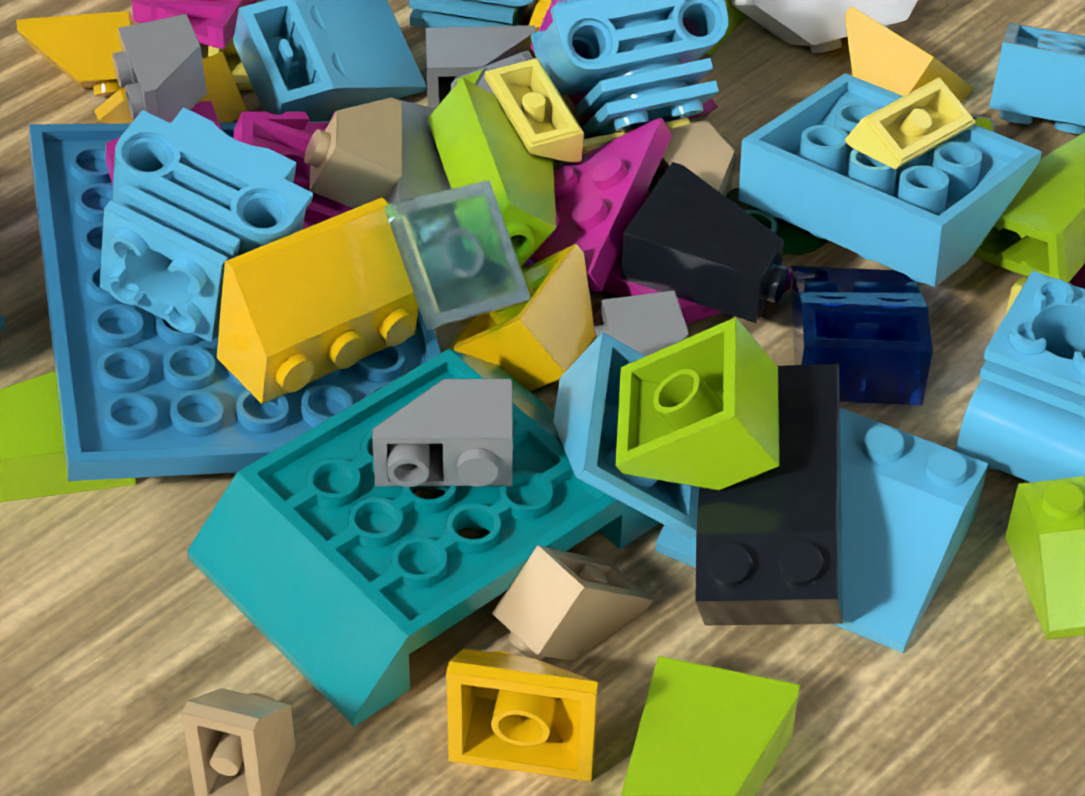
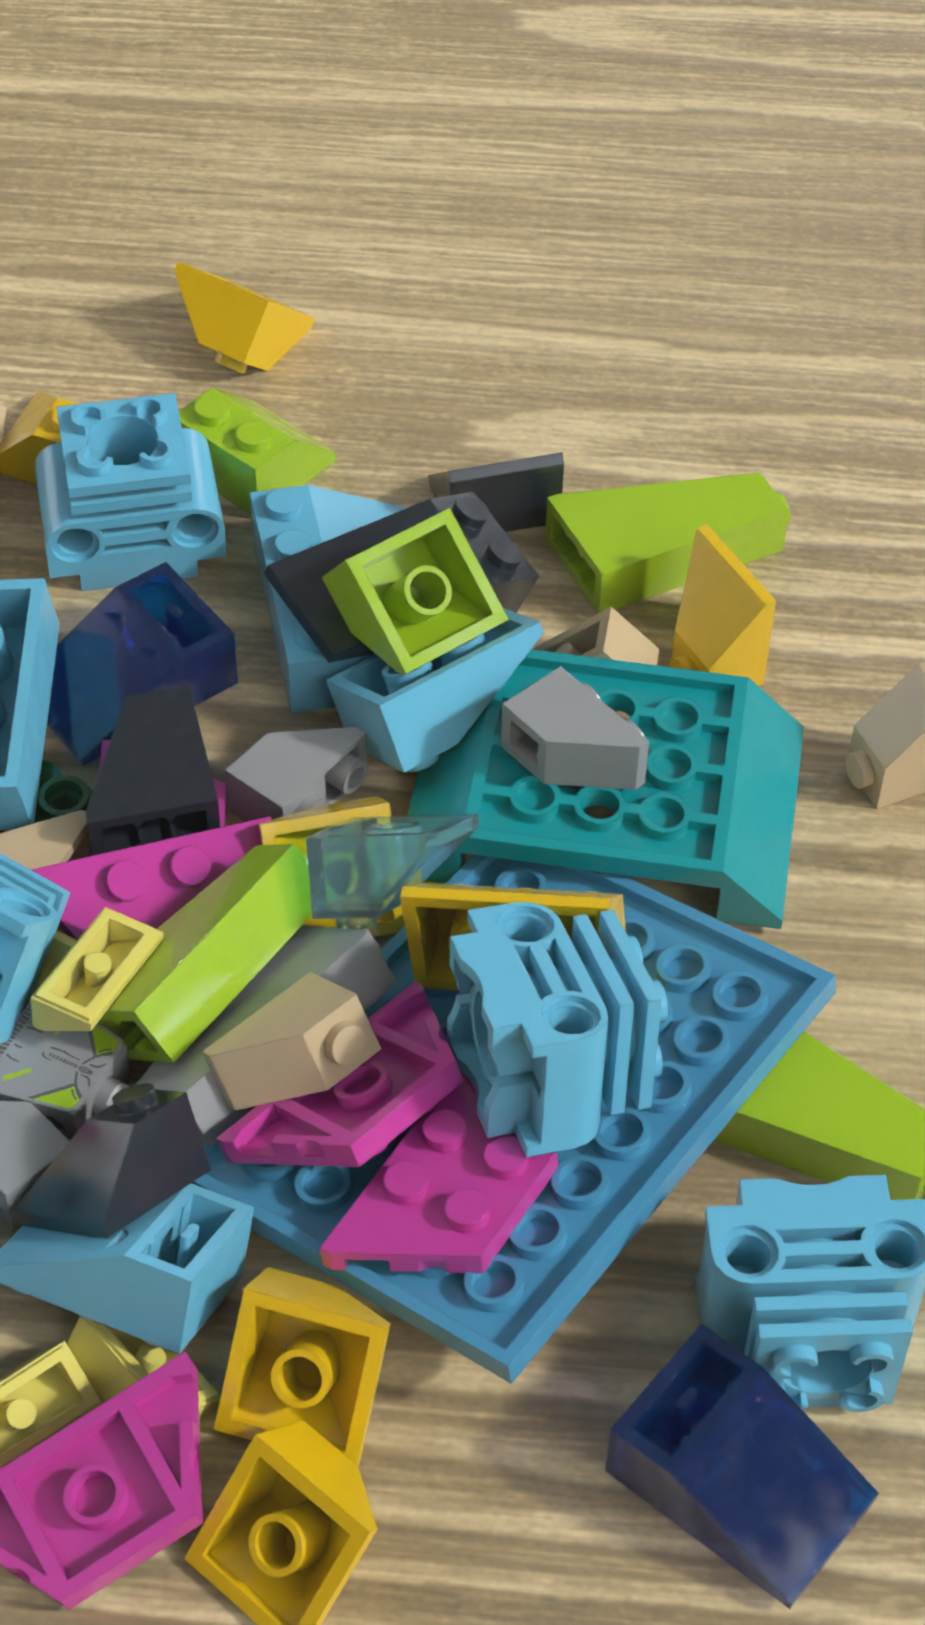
camera: 130 degrees left, 5 degrees up
(160, 67) = (357, 1253): light grey slope -> none
(372, 62) = (118, 1165): none -> black slope
(880, 699) = (510, 489): none -> black slope

